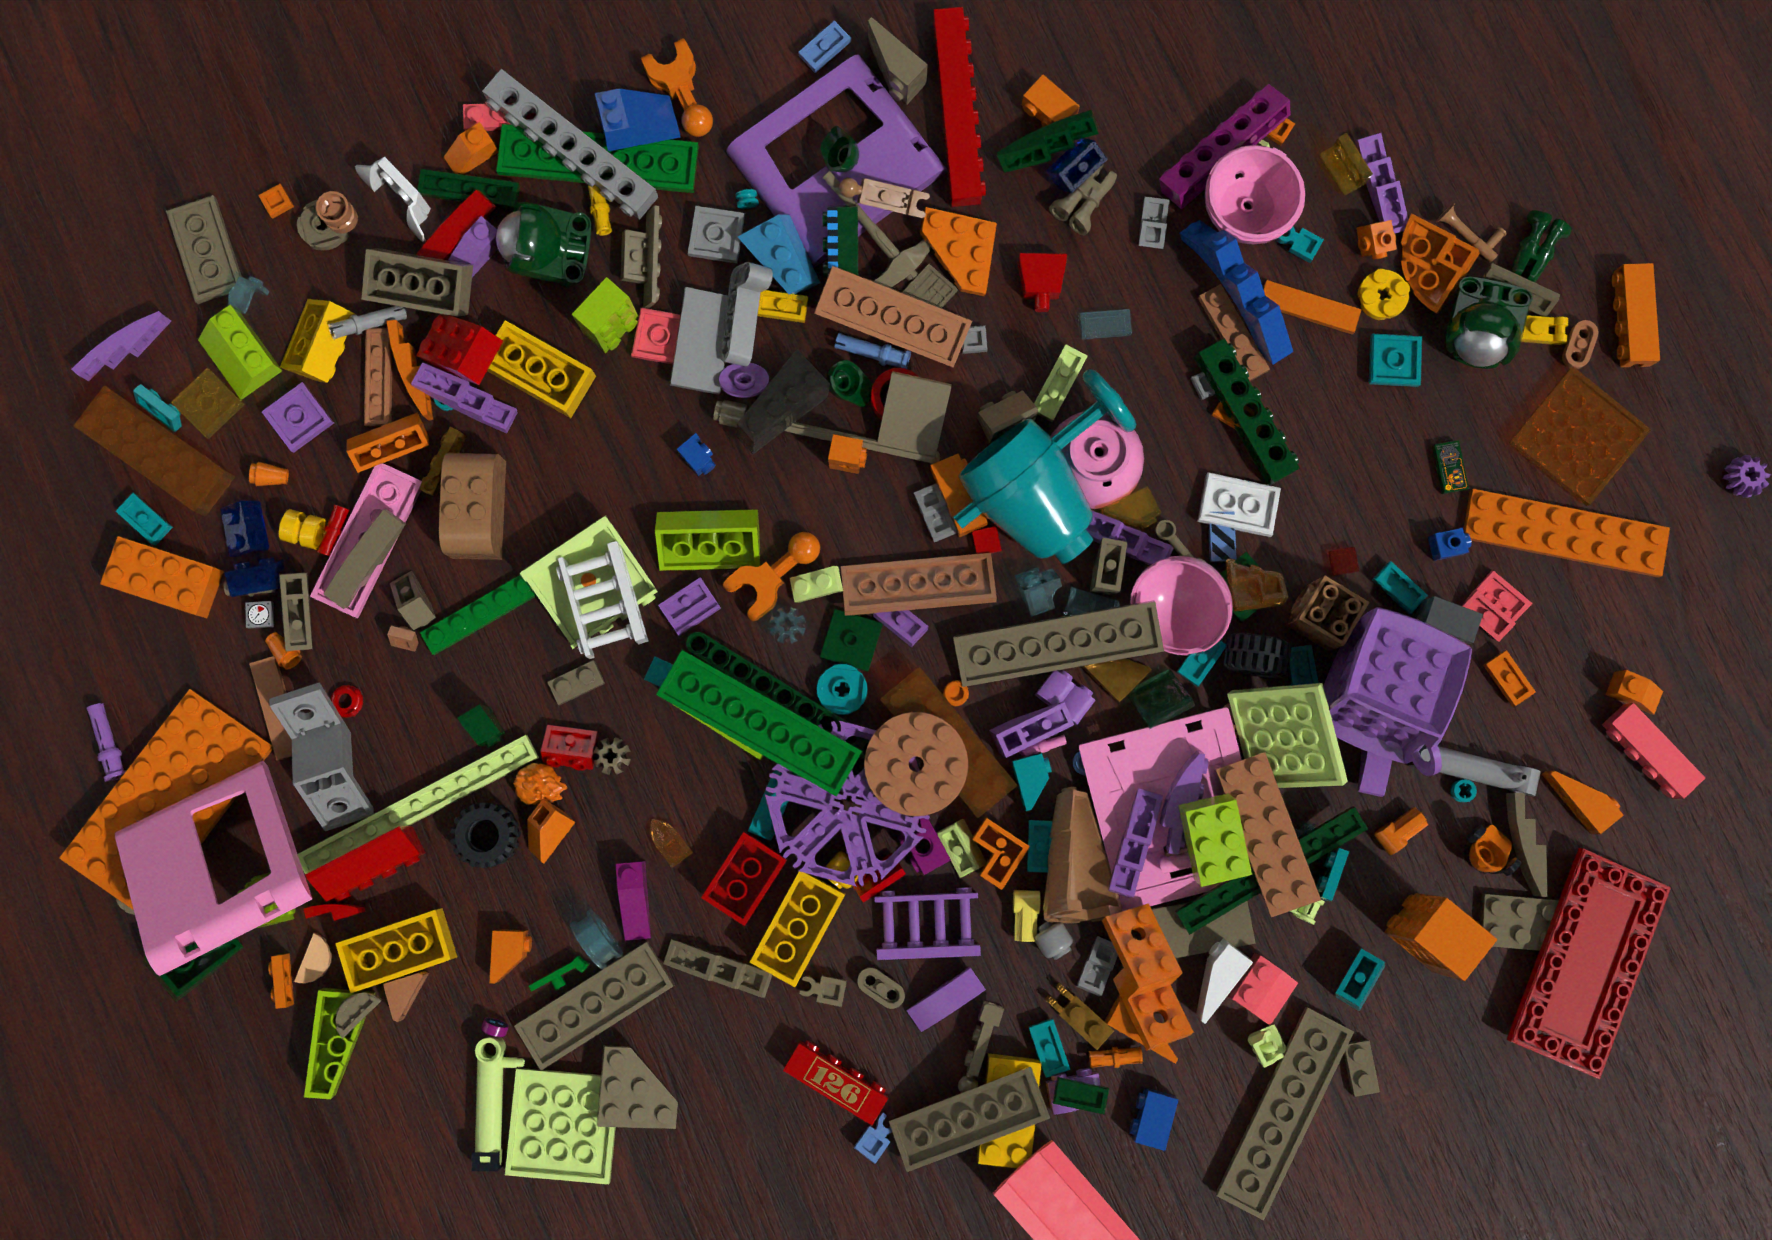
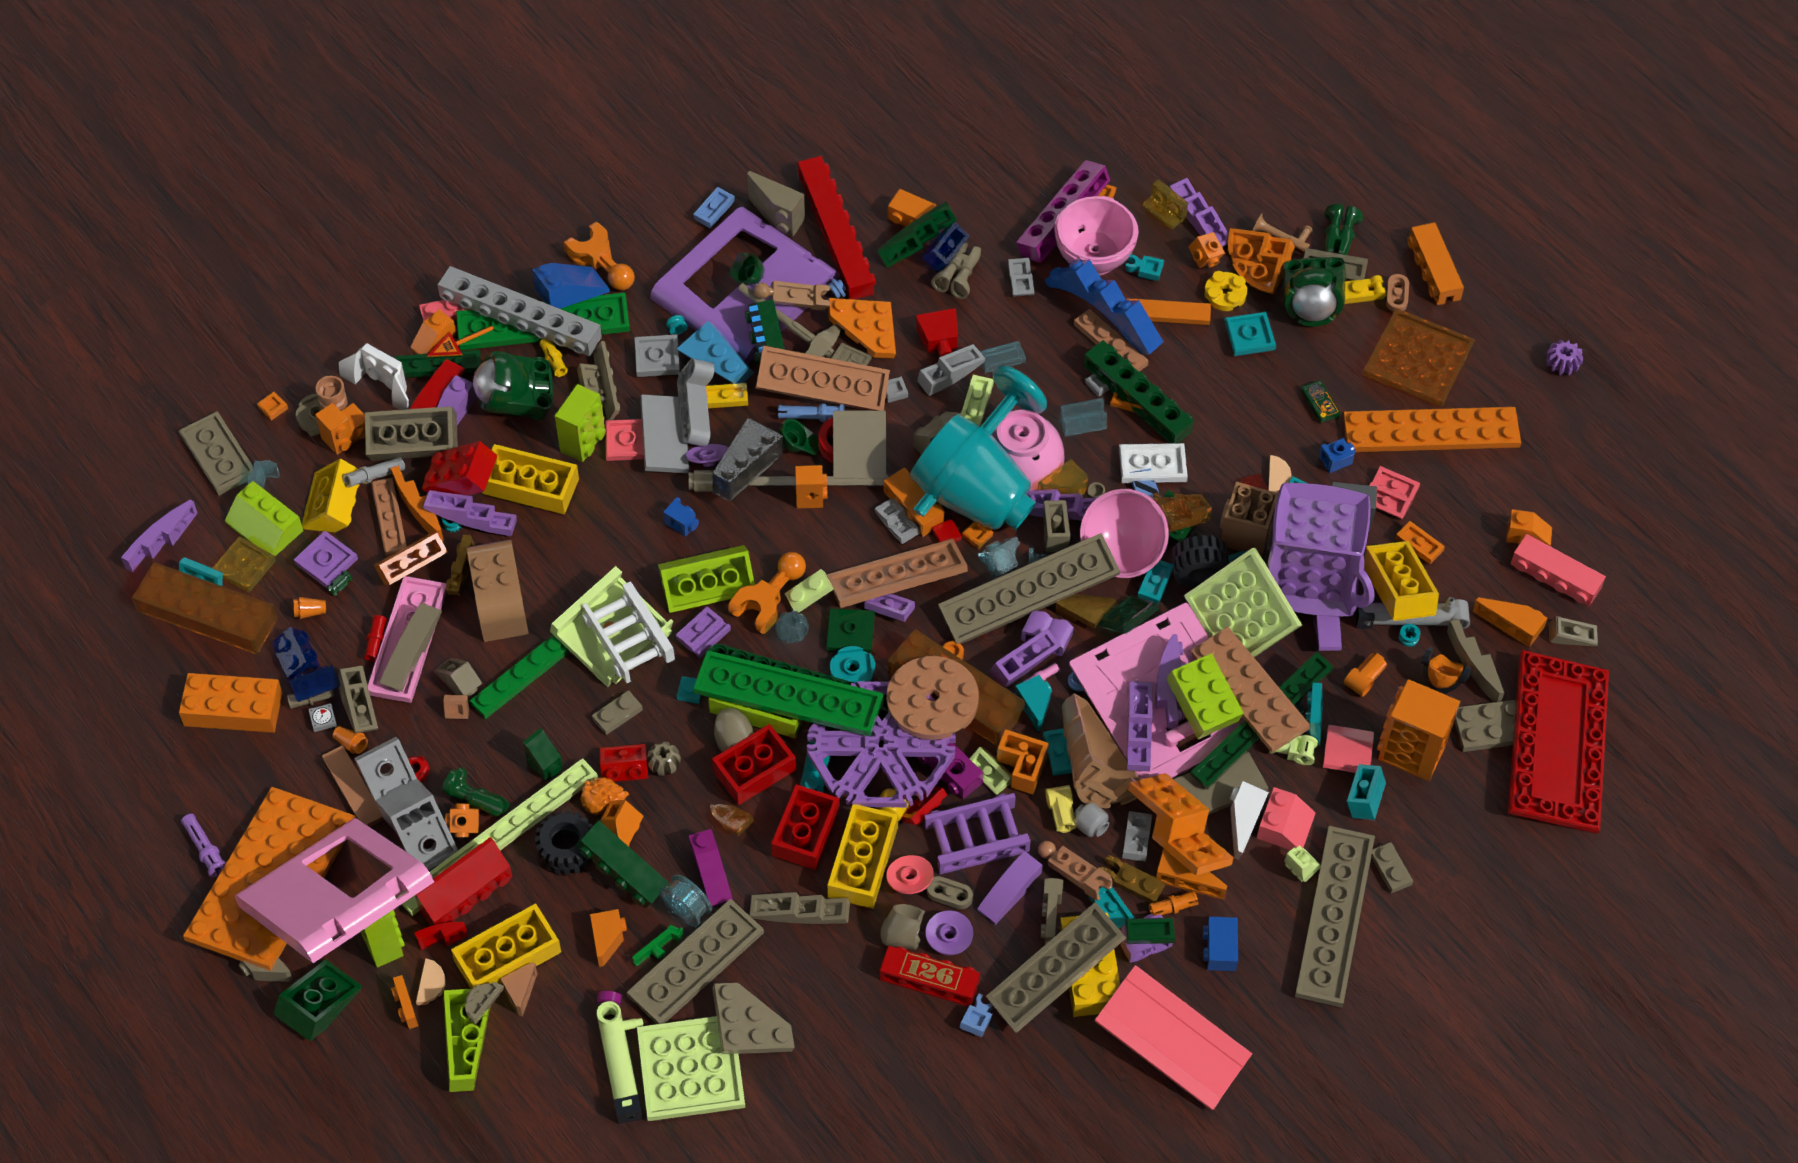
camera: 10 degrees left, 25 degrees down
(144, 519) = (203, 662): teal plate -> none
(298, 527) = (348, 640): yellow wheel -> none
(308, 450) = (339, 583): none -> dark green piece
(342, 253) = (341, 428): none -> orange brick
(382, 782) = (471, 816): none -> orange brick
(401, 755) = (456, 786): none -> dark green piece
(483, 172) = (449, 347): none -> piece
(537, 882) = (622, 864): none -> dark green brick
(693, 743) = (731, 728): none -> dark tan piece
(706, 788) = (754, 764): none -> red brick
(819, 1022) = (902, 927): none -> dark tan piece
(829, 990) = (899, 898): dark tan plate -> none
(843, 945) = (910, 874): none -> coral dish
(862, 1049) = (949, 923): none -> medium lavender dish
(940, 191) = (837, 288): none -> medium blue plate
(1017, 553) = (977, 534): none -> orange tile
(1019, 994) = (1075, 869): none -> nougat plate
(1042, 329) = (950, 369): none -> light grey slope
(1176, 429) = (1083, 417): none -> clear light blue hinge
(1355, 917) = (1347, 748): none -> coral slope
(1376, 552) = (1278, 473): none -> light nougat tile
(1478, 740) = (1401, 581): none -> yellow brick
(1644, 829) = (1572, 632): none -> dark tan slope

